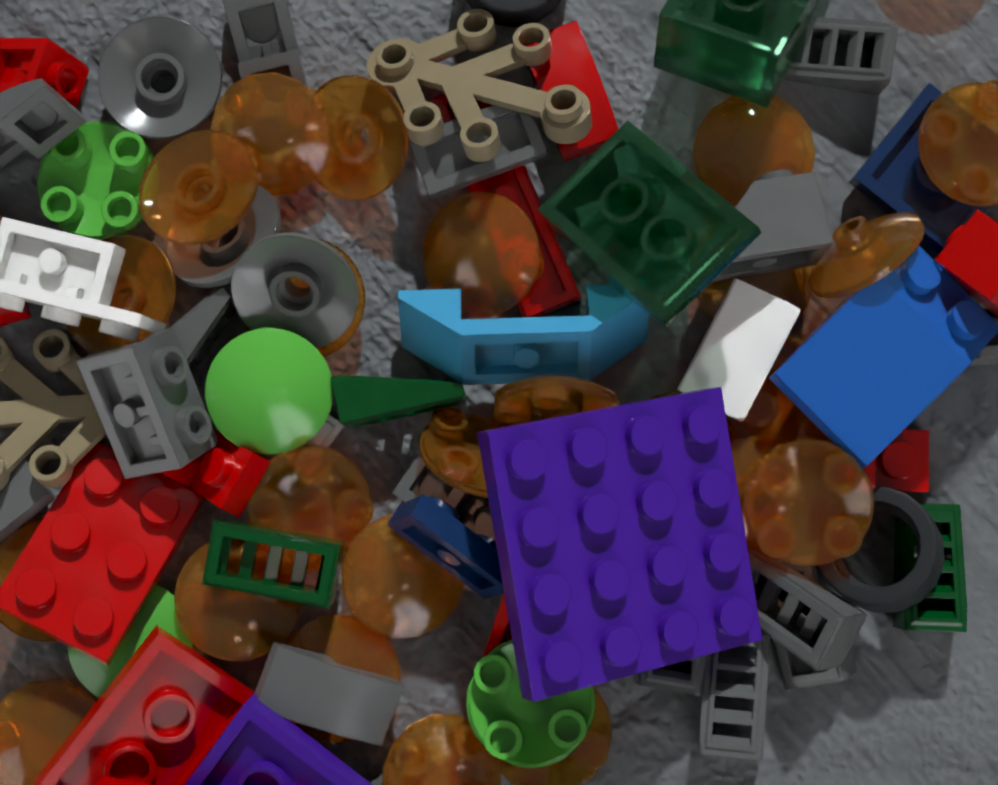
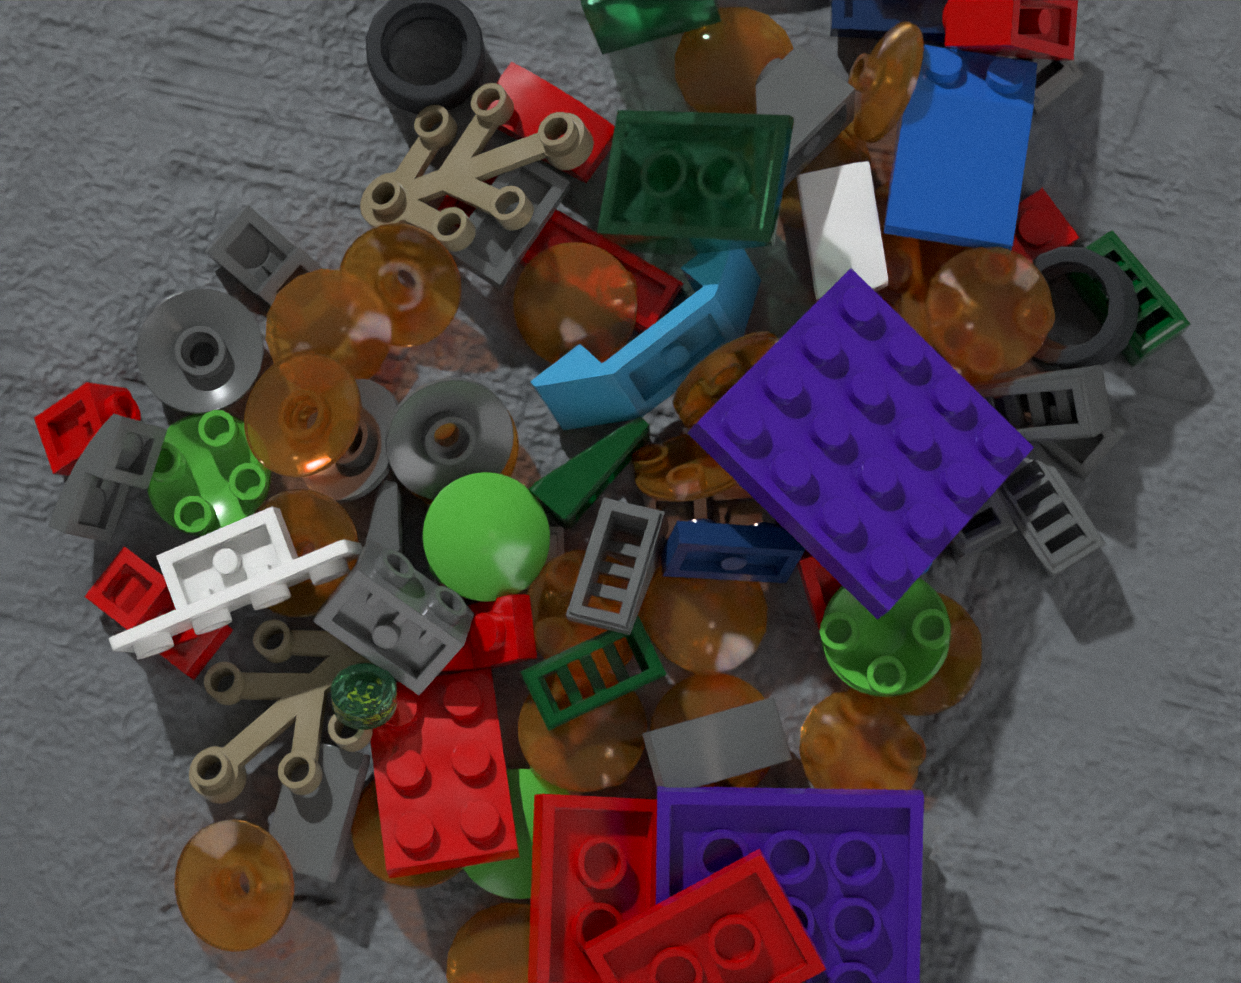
camera: 35 degrees left, 5 degrees down
(77, 449) = (364, 696): none -> clear green tile
(376, 449) = (628, 520): none -> dark grey slope

